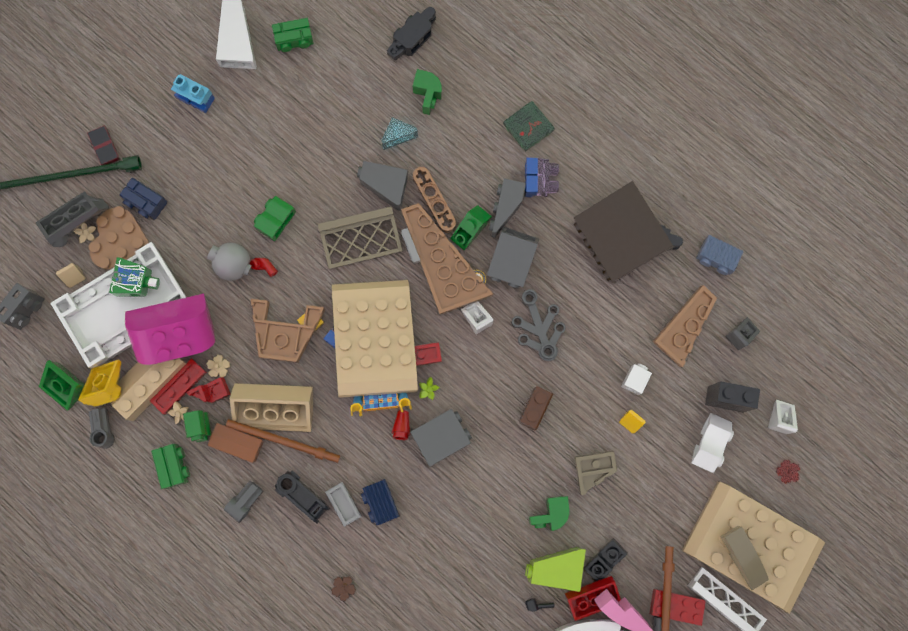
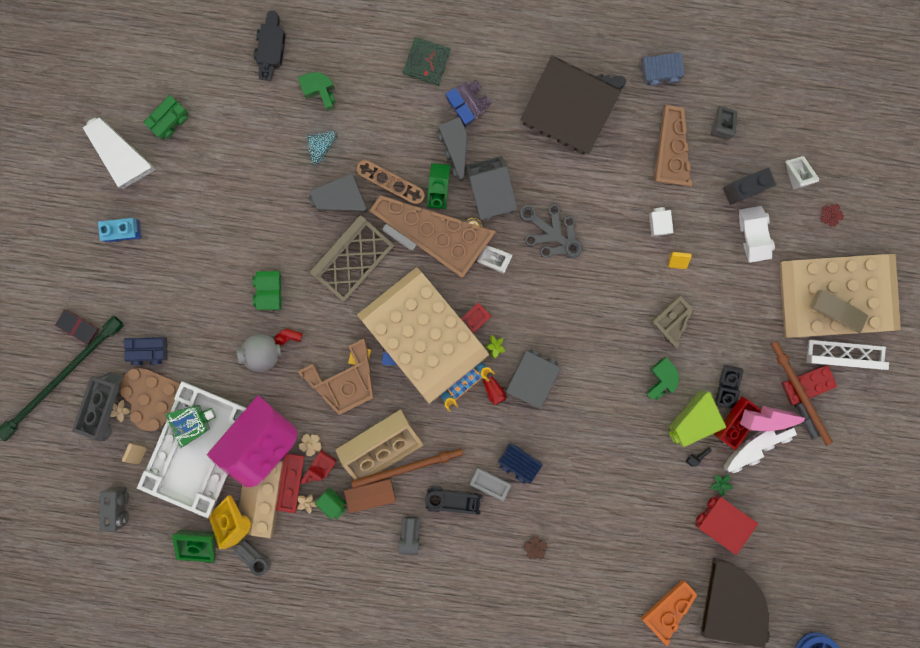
camera: 25 degrees left, 10 degrees up
(170, 466) = (331, 549): green brick -> none
(535, 408) = (594, 303): reddish brown brick -> none

